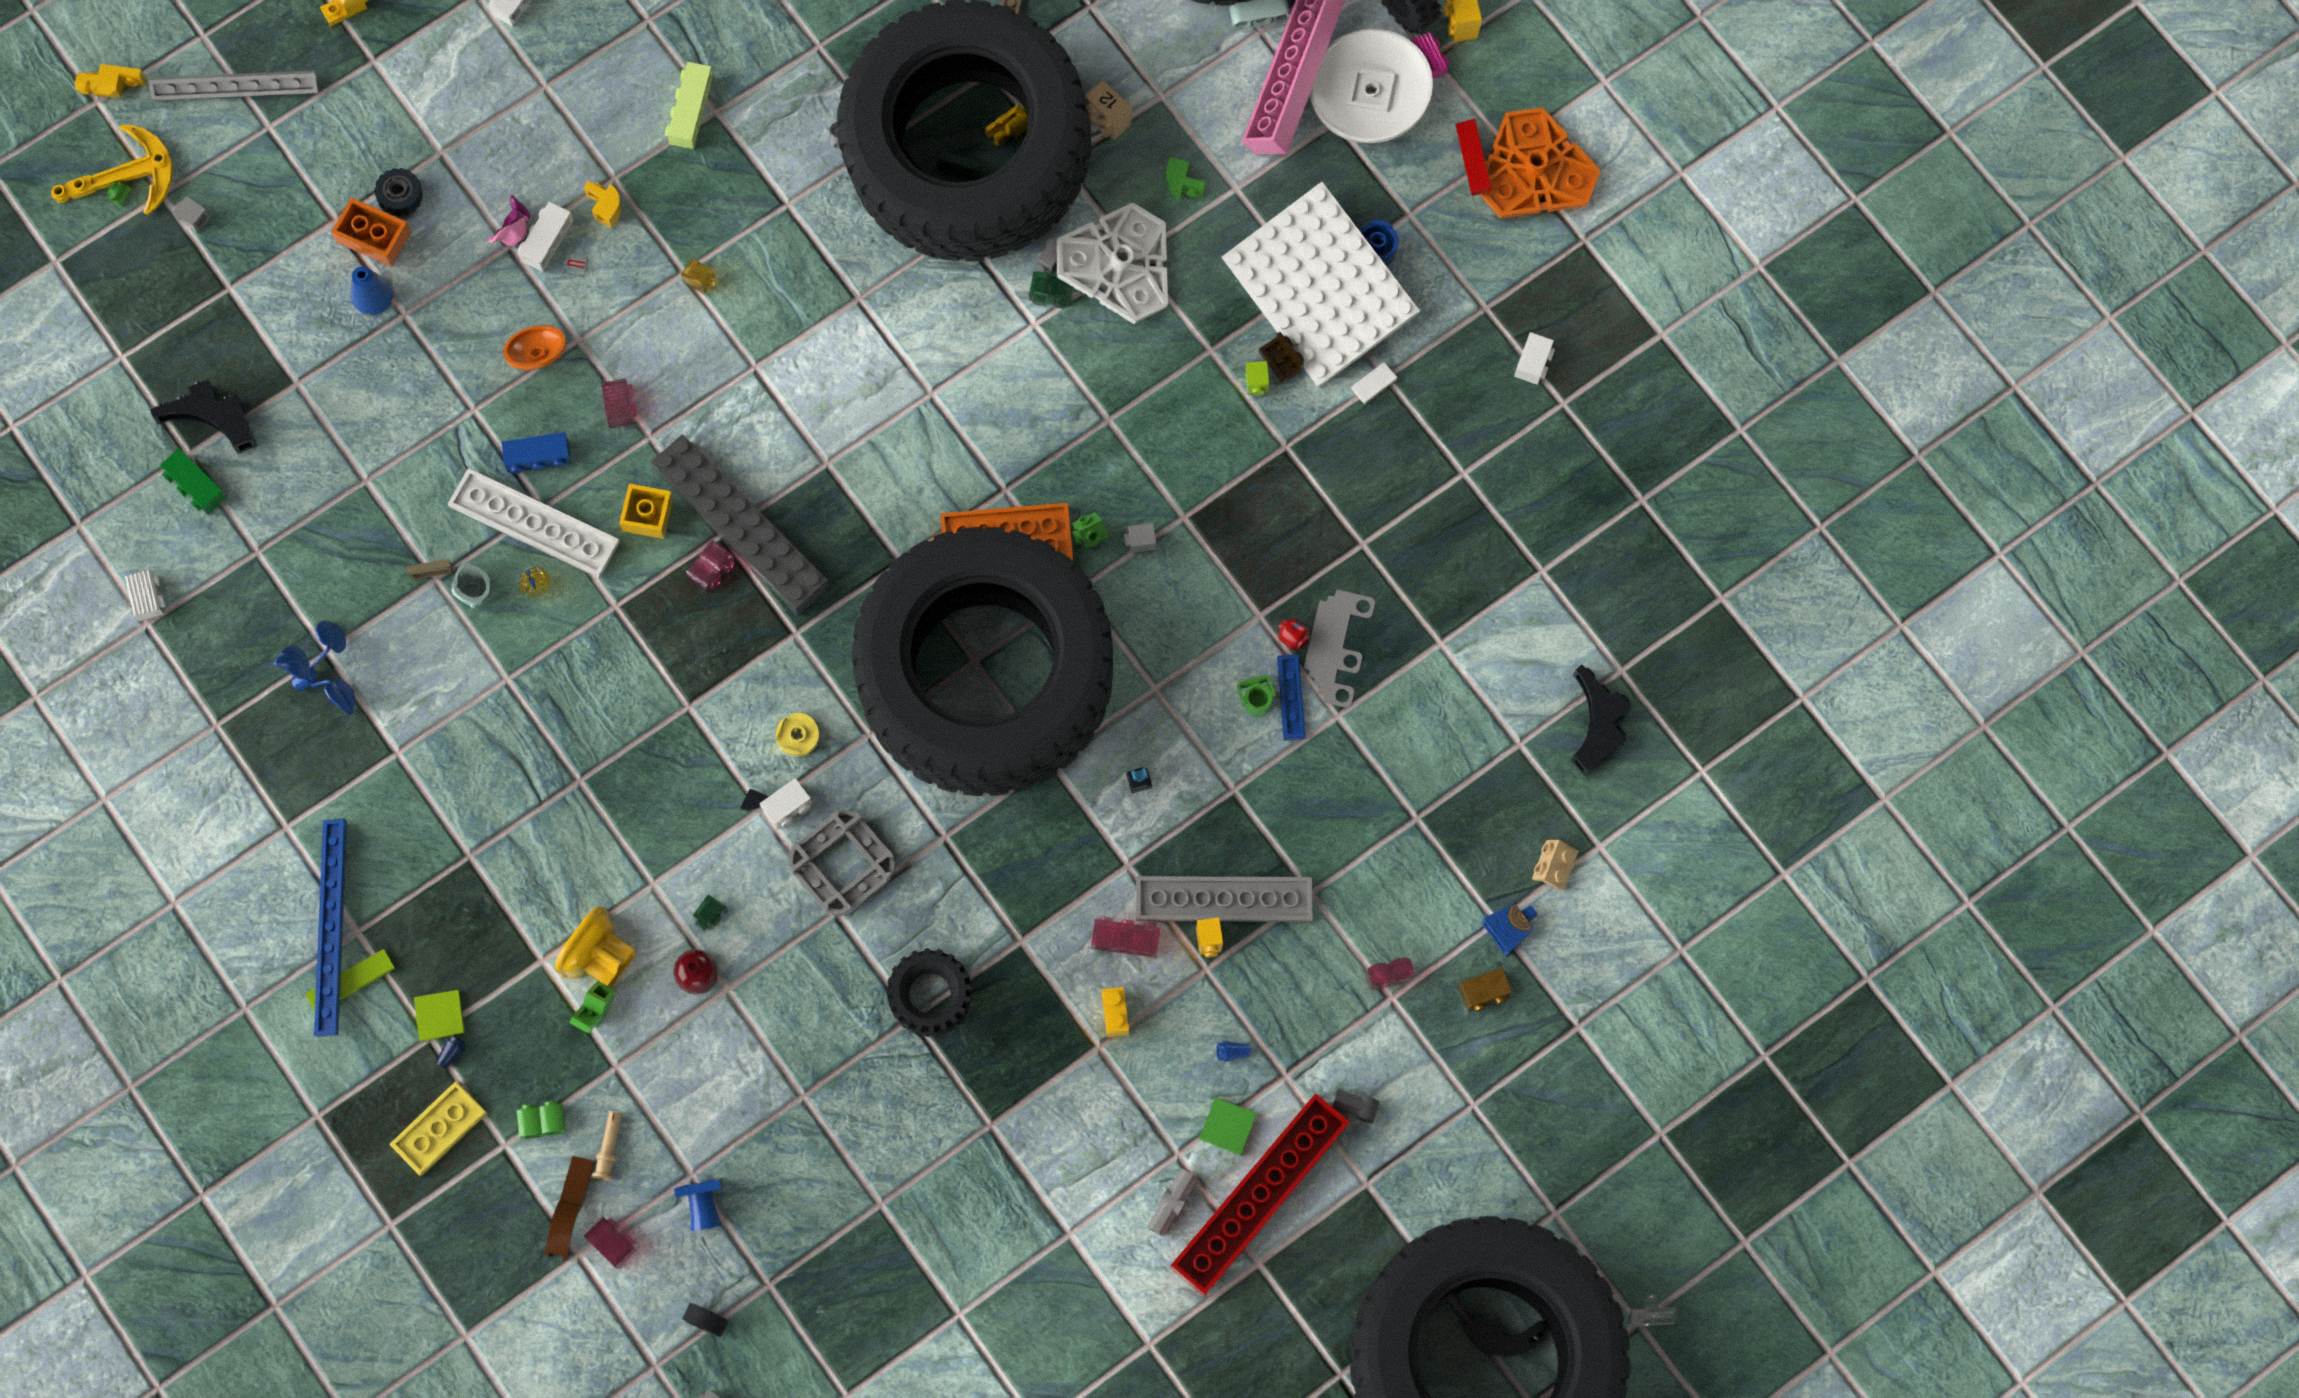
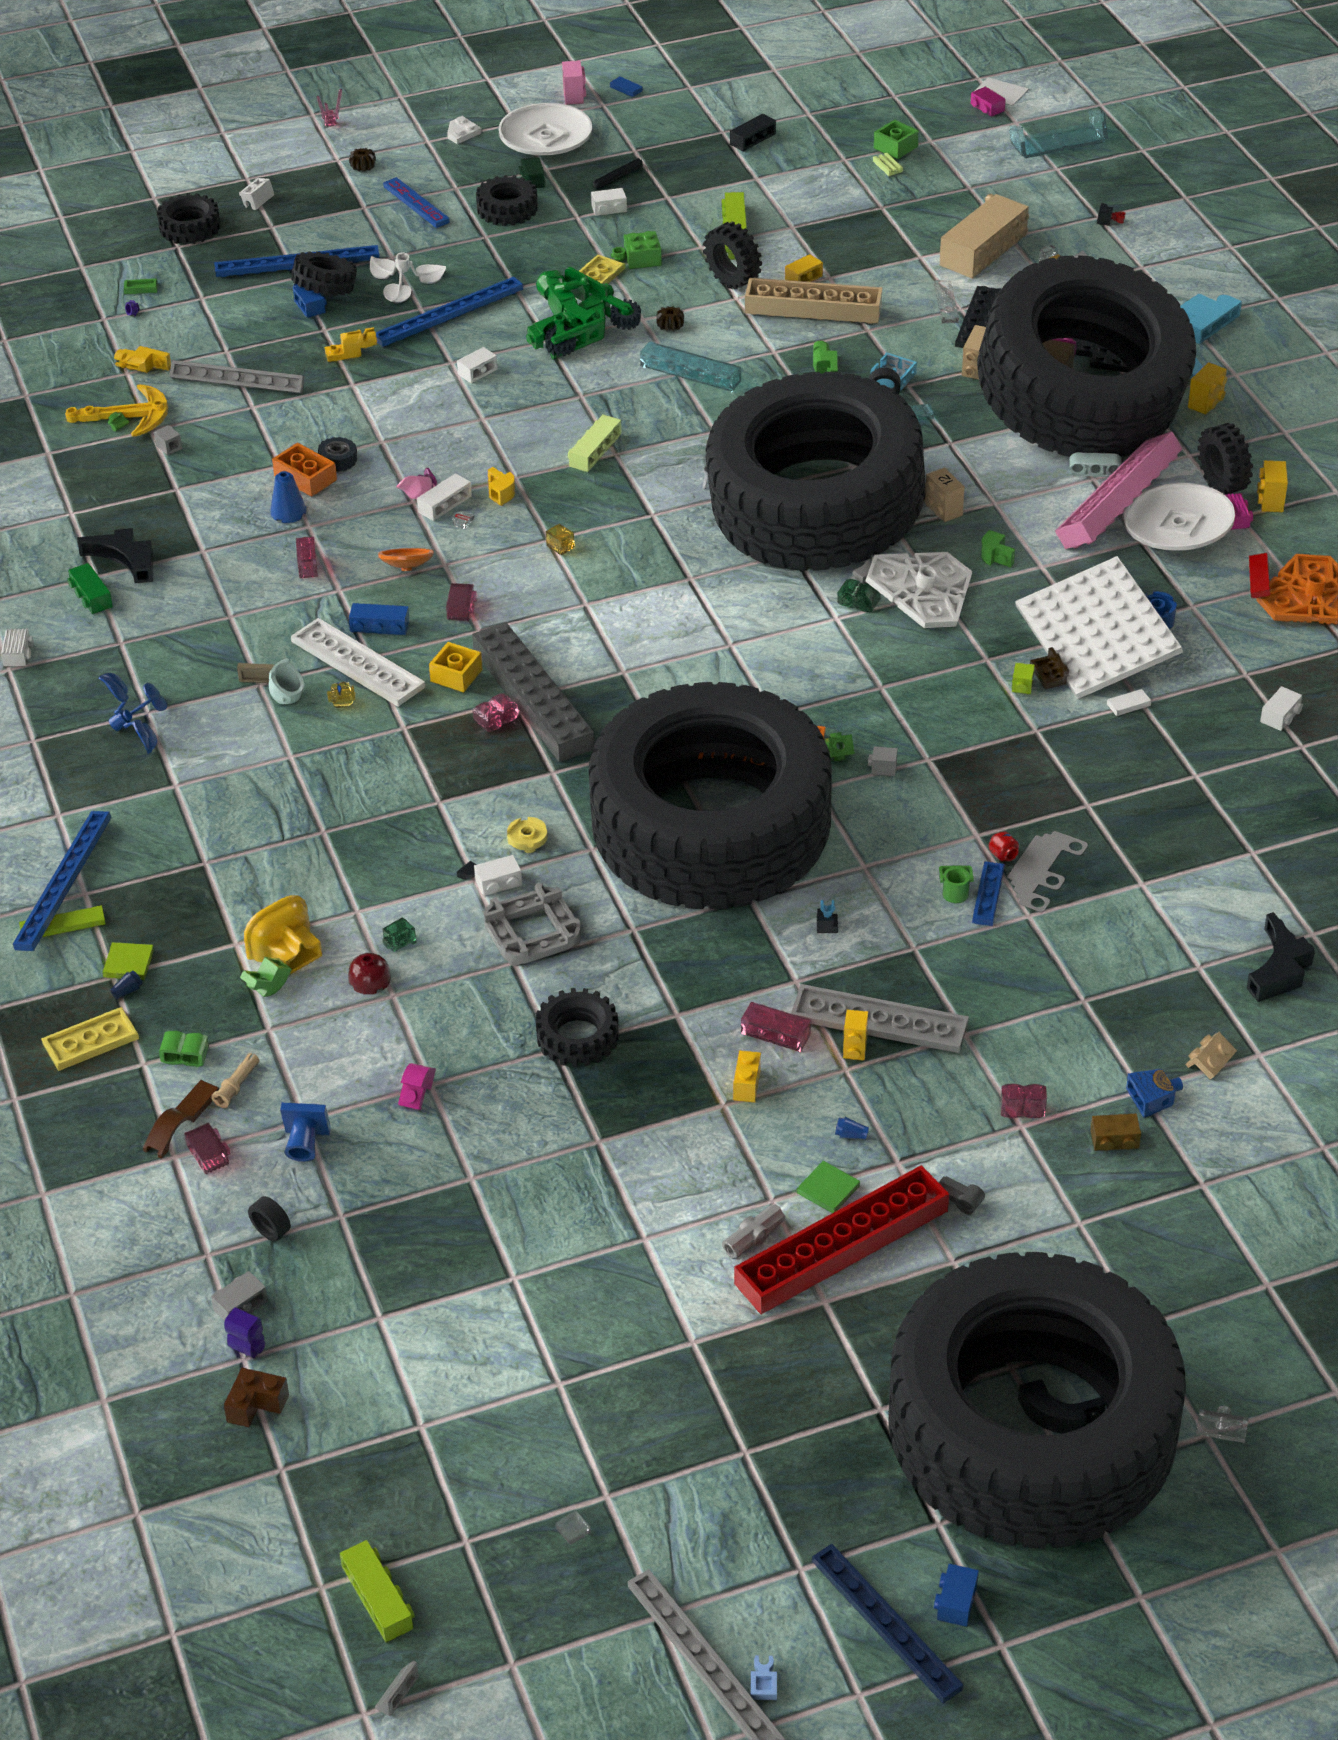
camera: 20 degrees right, 30 degrees down
(422, 374) = (306, 557): none -> clear pink brick
(792, 1109) = (415, 1082): none -> dark pink brick

